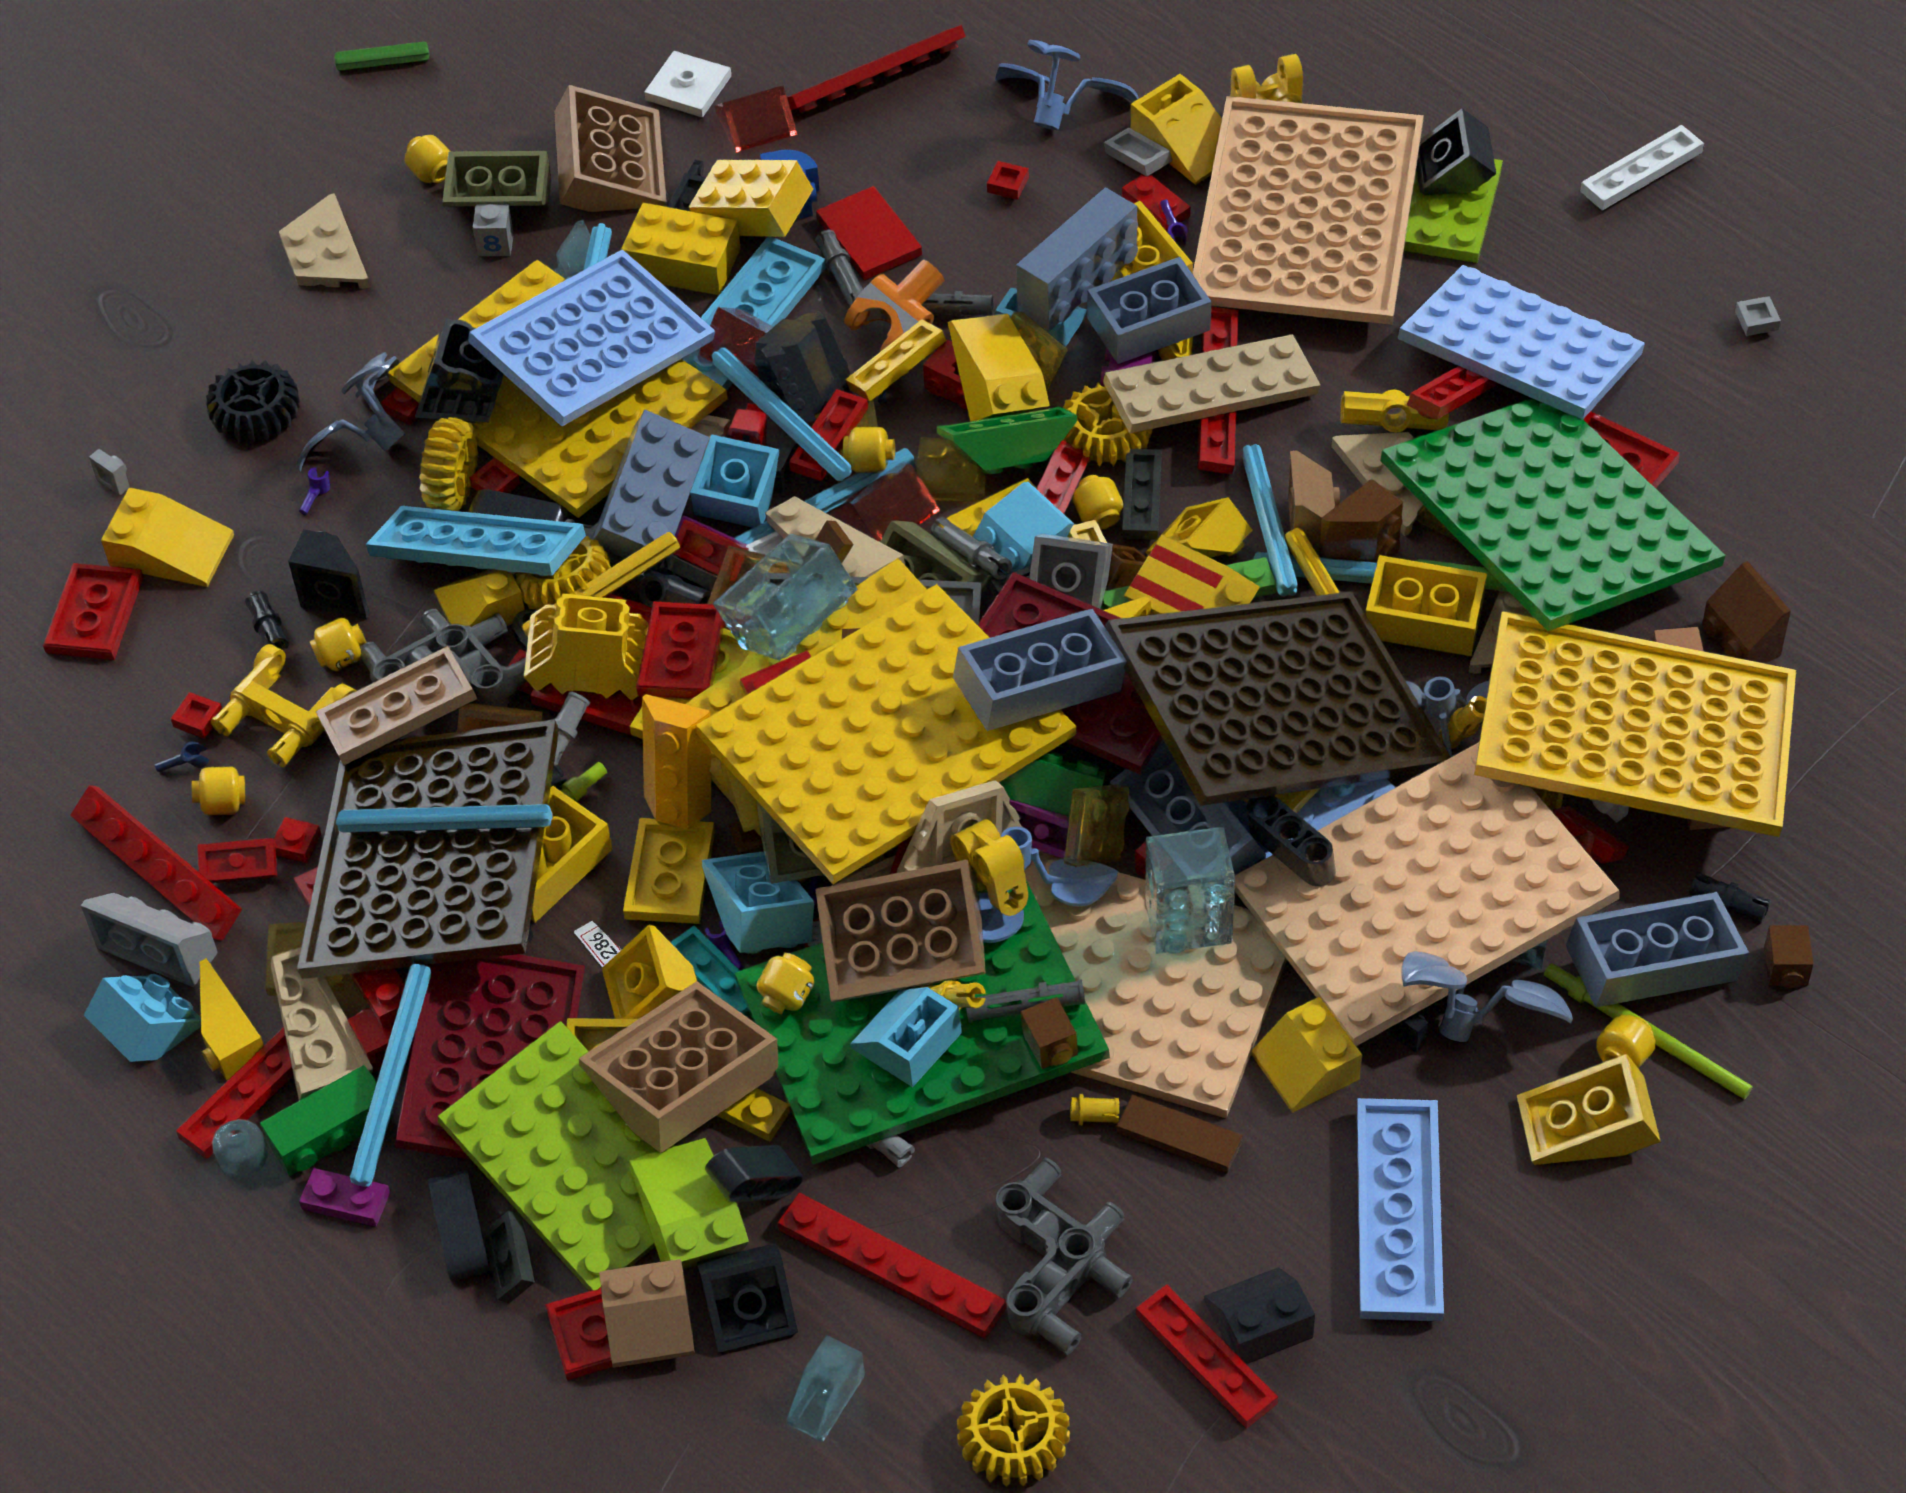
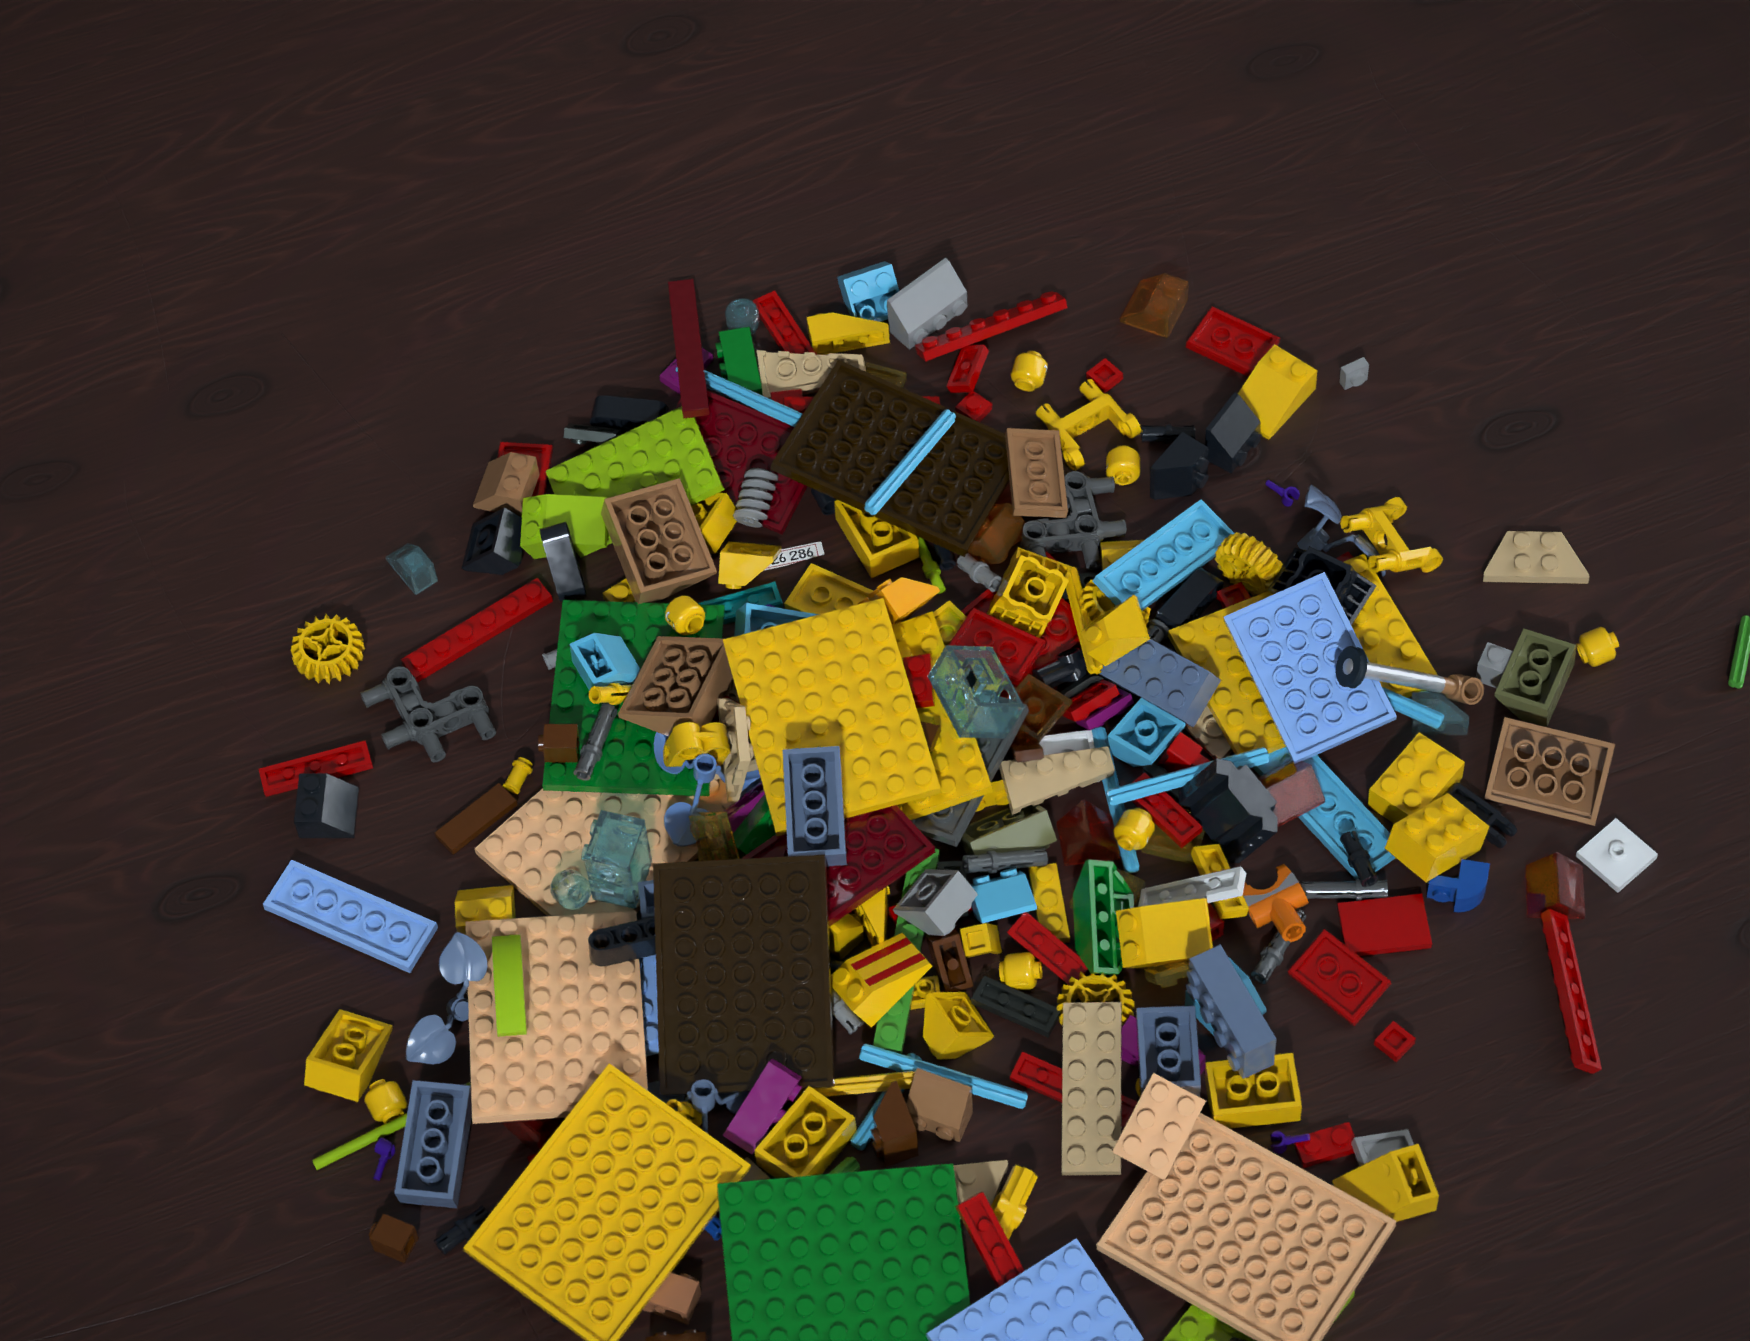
camera: 115 degrees right, 5 degrees up
(59, 698) = (1156, 304): none -> clear orange slope
(189, 754) = (1072, 365): dark blue hand -> none
(252, 401) = (1390, 464): black gear -> none
(252, 552) = (1232, 434): none -> black slope
(327, 1174) = (688, 349): none -> dark red tile
(372, 340) = (1394, 555): none -> yellow connector
(554, 989) = (753, 496): none -> light grey piece
(591, 267) = (1353, 668): none -> piece
(618, 520) = (1116, 632): none -> yellow slope
(807, 255) = (1359, 858): none -> black pin
(926, 365) = (1212, 886): none -> white plate
(956, 242) = (1339, 977): none -> red tile
(1050, 104) = (1467, 1073): medium blue plant -> none
(1242, 284) = (1158, 1126): none -> light nougat plate
(1244, 948) = (570, 889): none -> clear light blue head
(1282, 86) = (1402, 1264): yellow piece -> none
(1413, 644) = (763, 1106): none -> magenta brick
(1415, 929) = (508, 985): none -> lime slope
(1683, 1021) = (387, 1151): none -> dark purple hand

